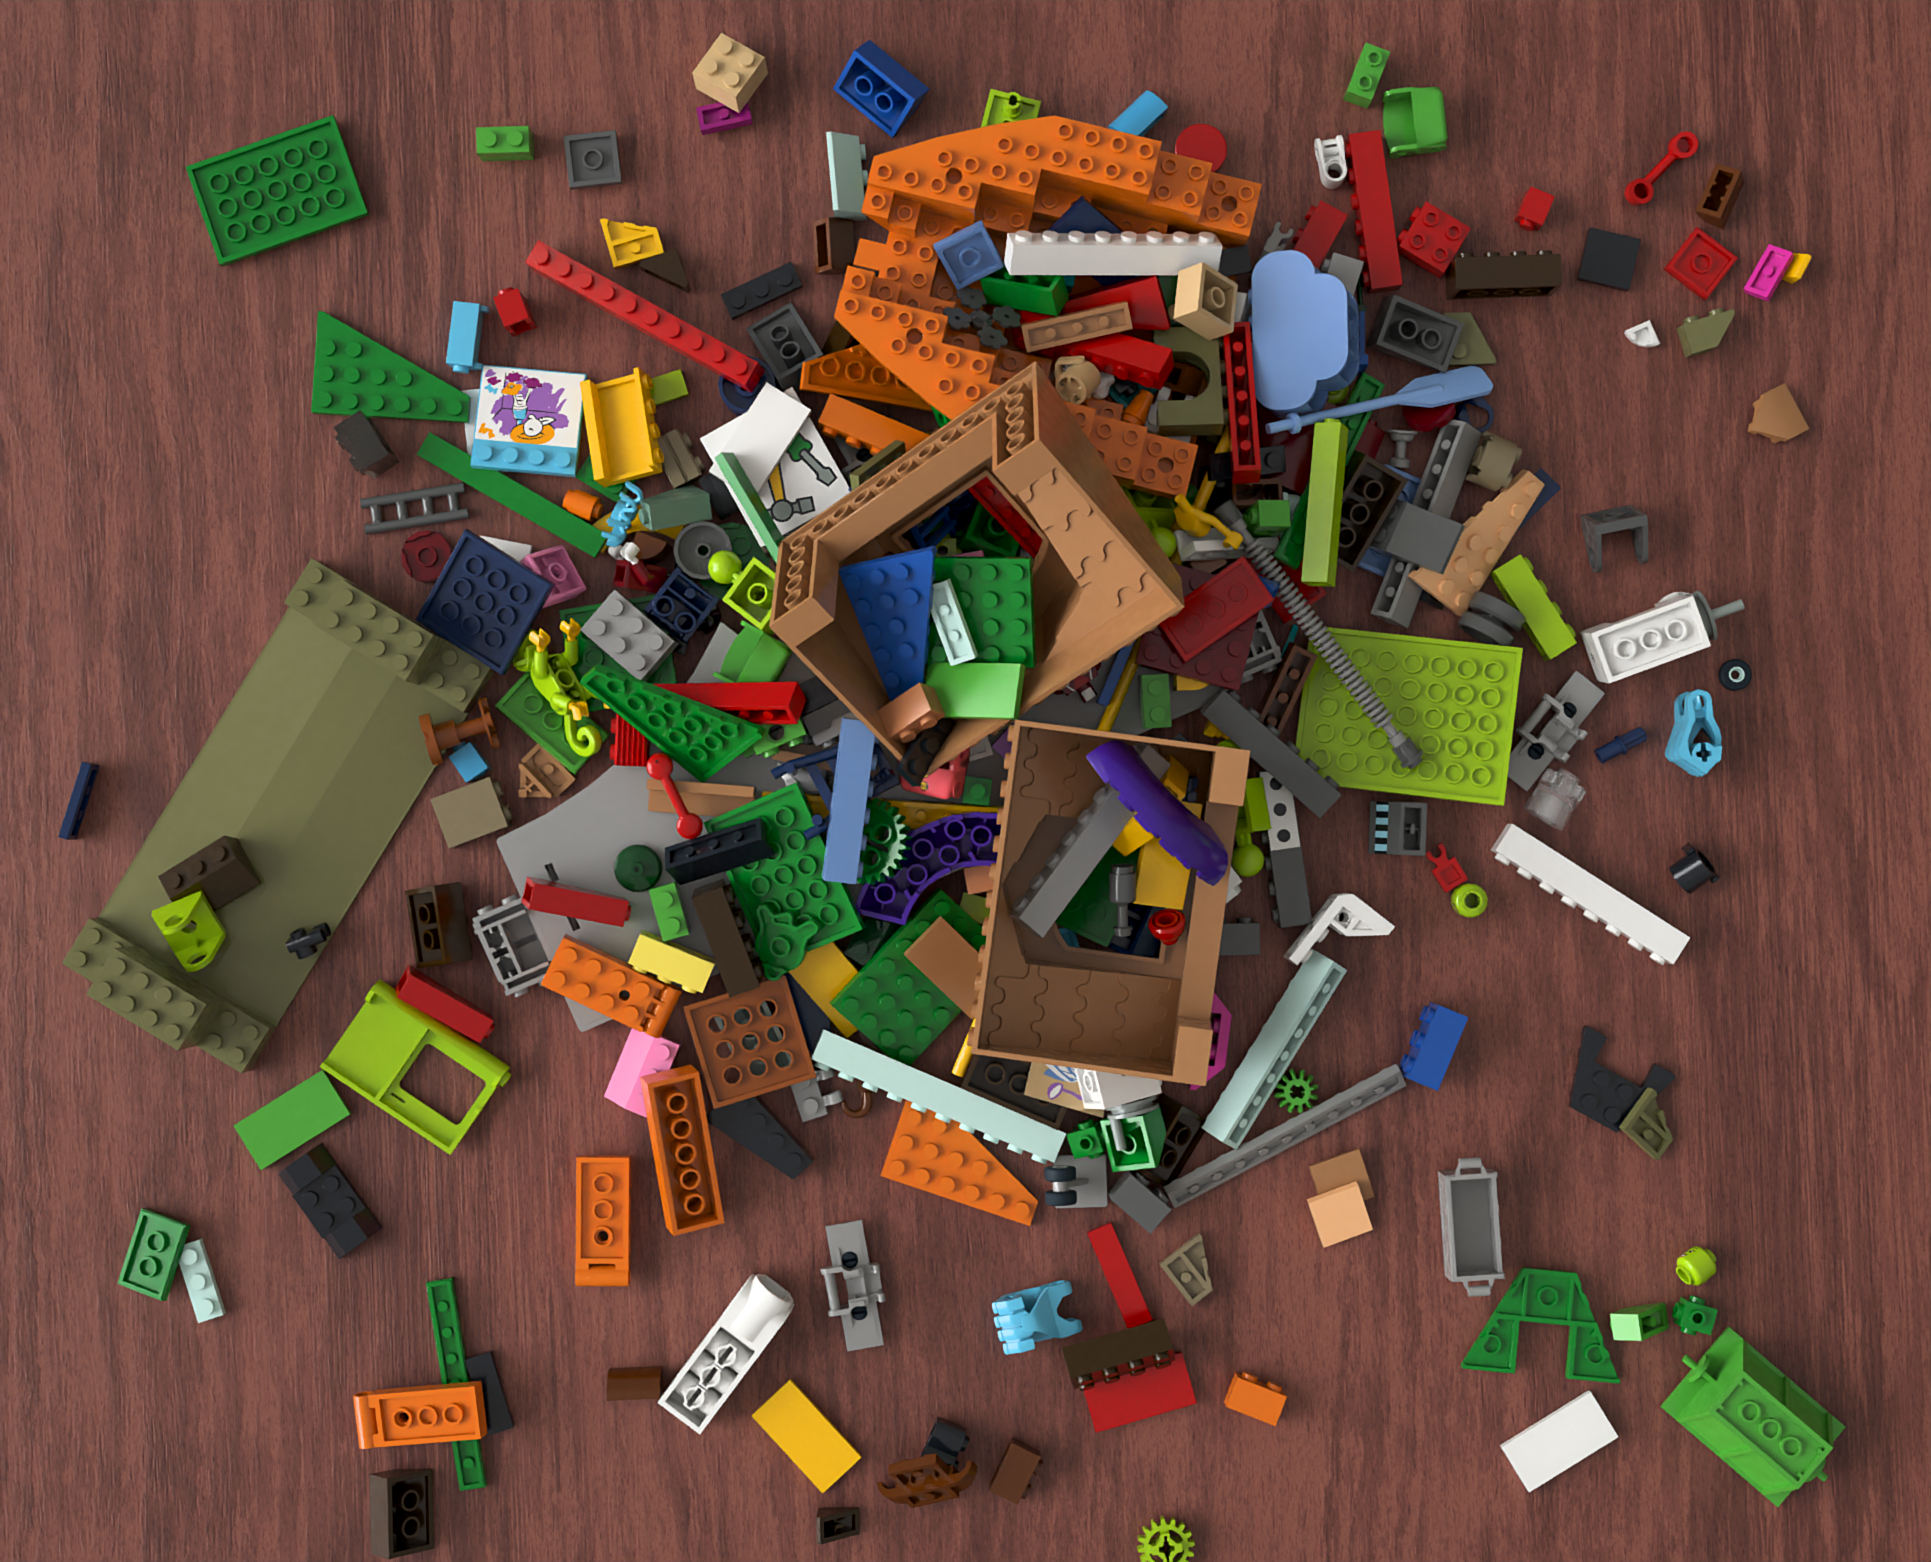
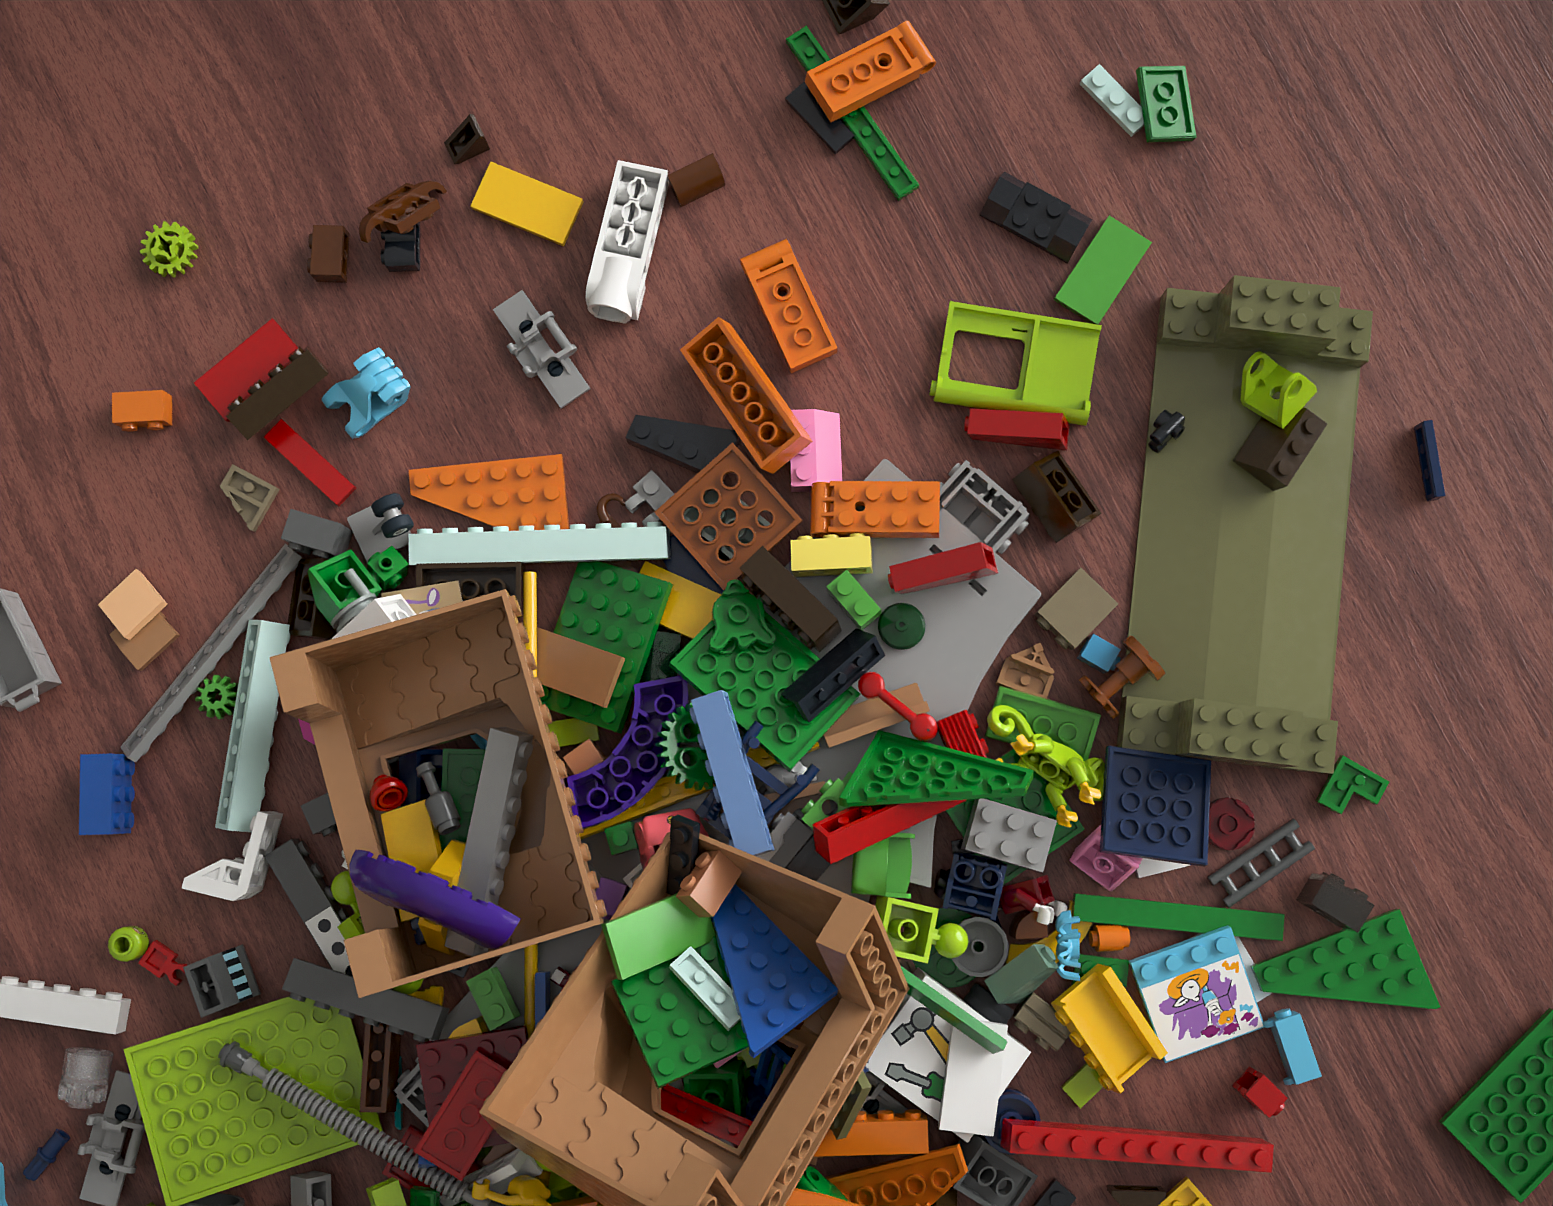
camera: 160 degrees right, 5 degrees down
(298, 546) = (1349, 779): none -> green plate

